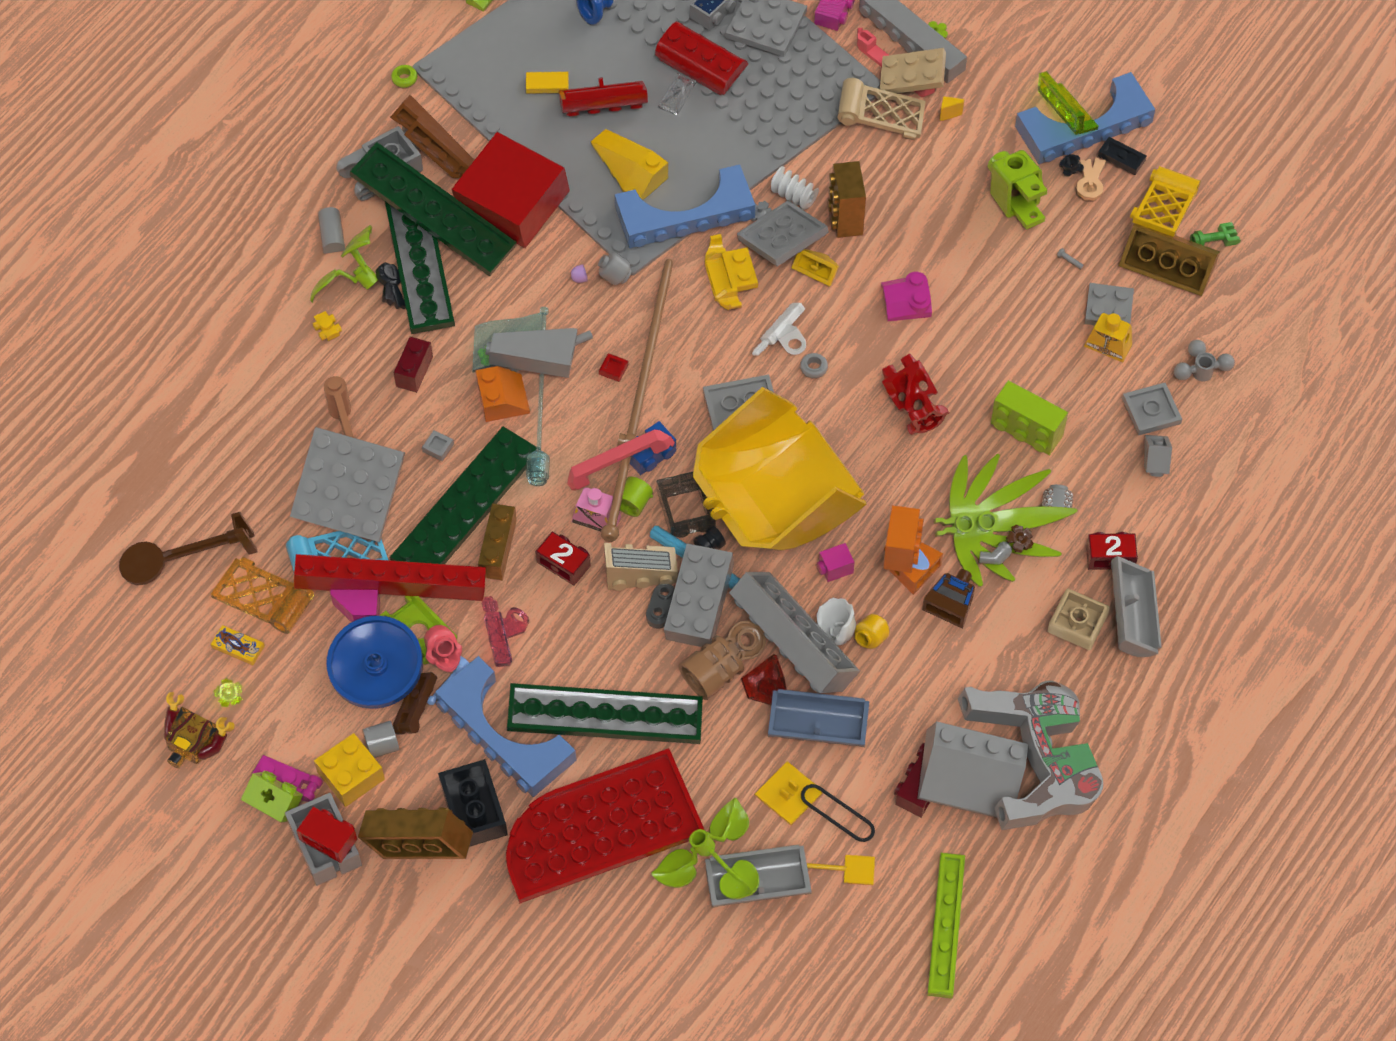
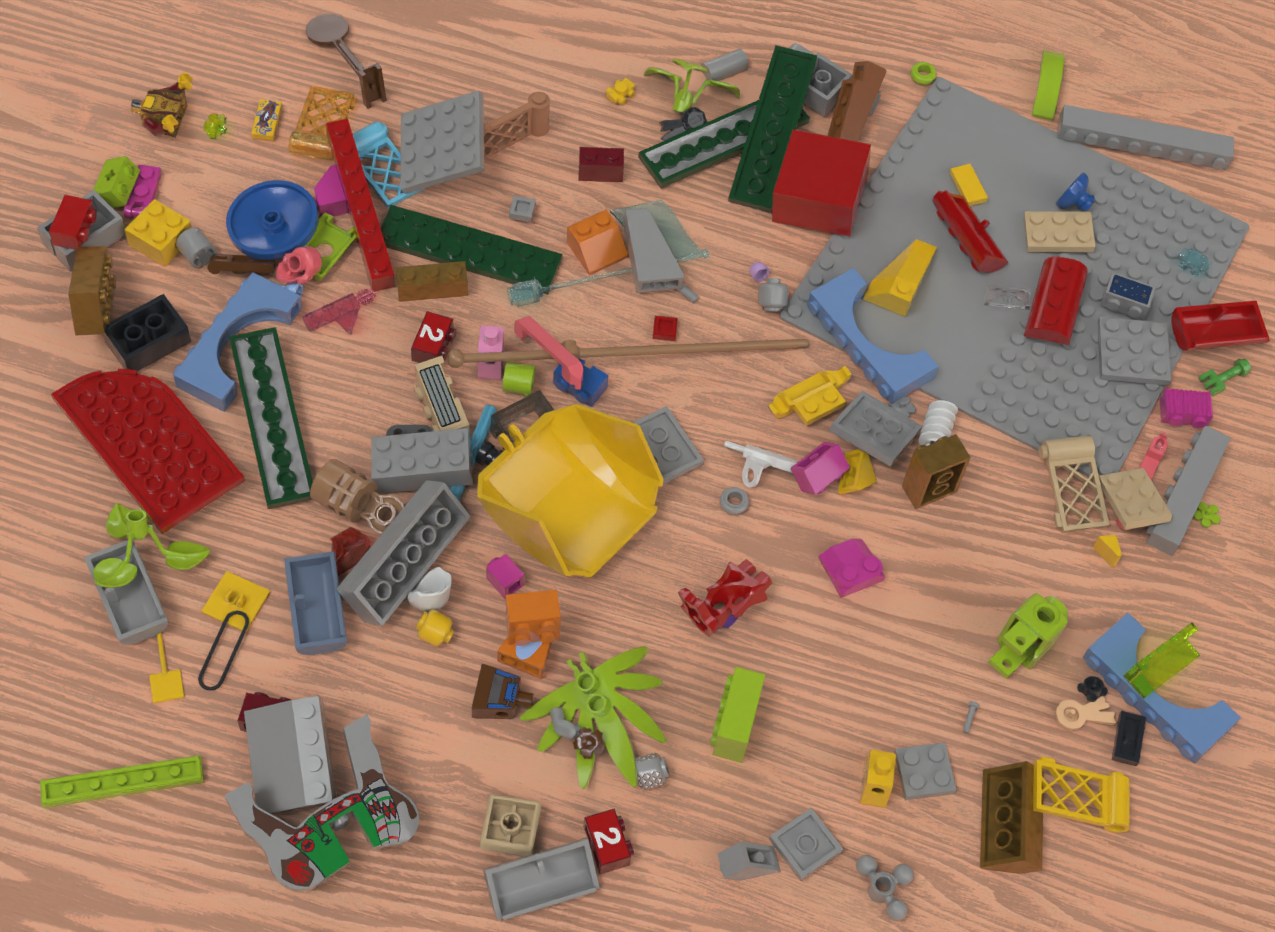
camera: 65 degrees right, 0 degrees up
(624, 32) = (1058, 231): none -> tan plate
(808, 287) = (820, 468): none -> dark pink brick
(1226, 233) = (1073, 874): bright green hinge -> none

